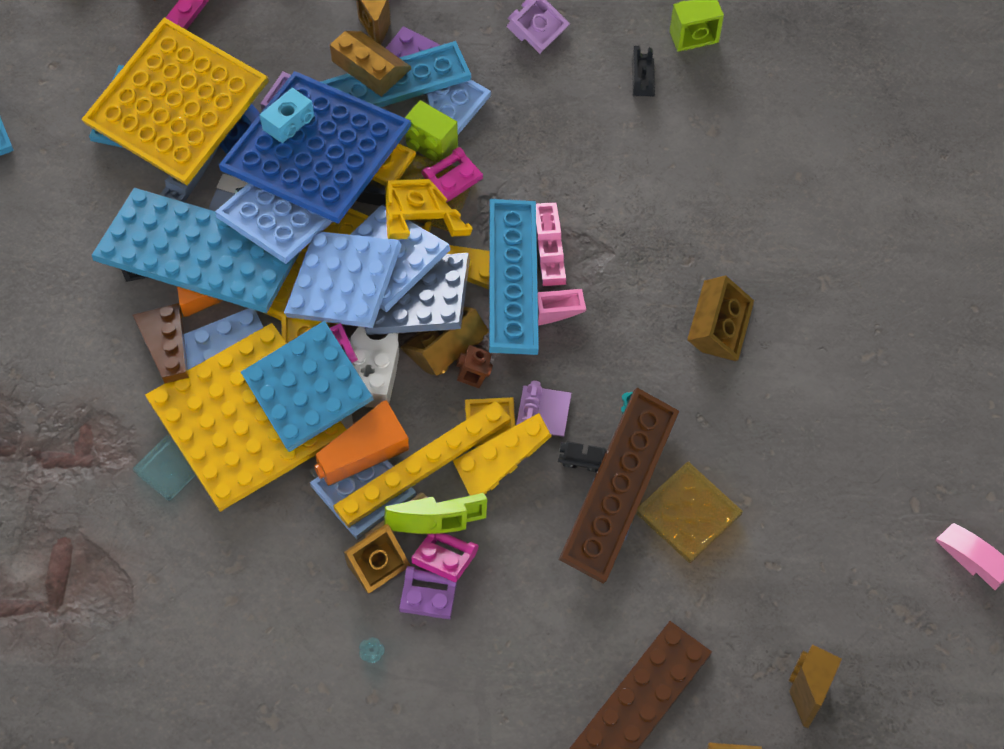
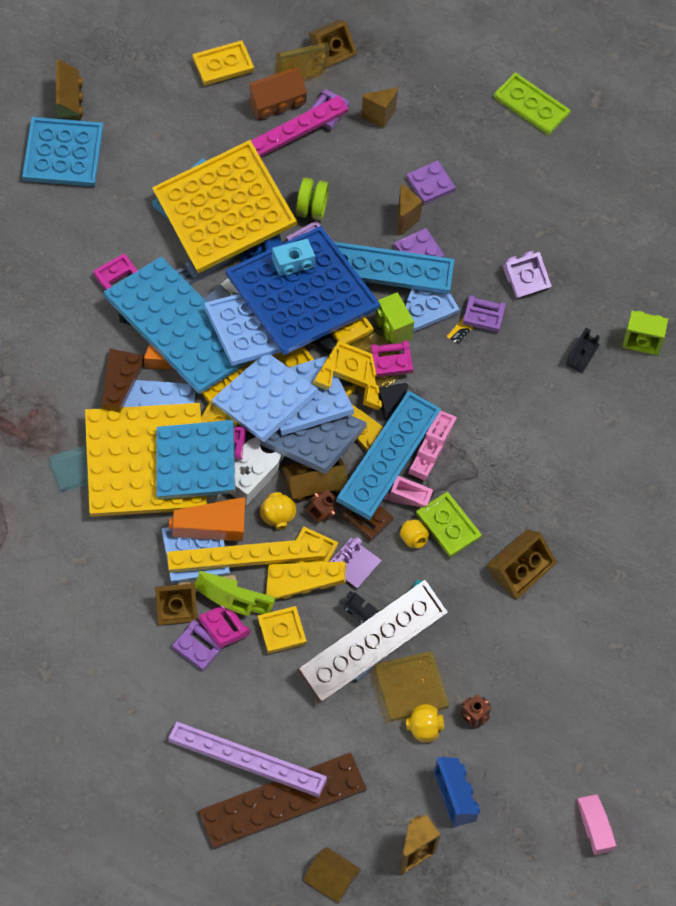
camera: 25 degrees right, 0 degrees up
(88, 229) = (114, 270): none -> dark pink plate
(266, 50) = (309, 198): none -> lime wheel
(368, 61) = (379, 243): pearl gold slope -> none
(368, 656) = (134, 667): clear light blue plate -> none
(427, 396) = (278, 510): none -> yellow plant
(475, 214) = (391, 398): none -> black slope
(503, 110) = (459, 332): none -> sticker
(511, 525) = (282, 630): none -> yellow plate
(518, 88) = (484, 318): none -> medium lavender plate
(544, 356) = (379, 522): none -> reddish brown plate
(564, 692) = (247, 759): none -> lavender plate
(589, 346) = (414, 534): none -> yellow head
(619, 318) = (448, 524): none -> lime plate
(730, 544) = (425, 723): none -> yellow plant
(775, 501) = (471, 715): none -> copper brick
(810, 602) = (456, 791): none -> blue slope

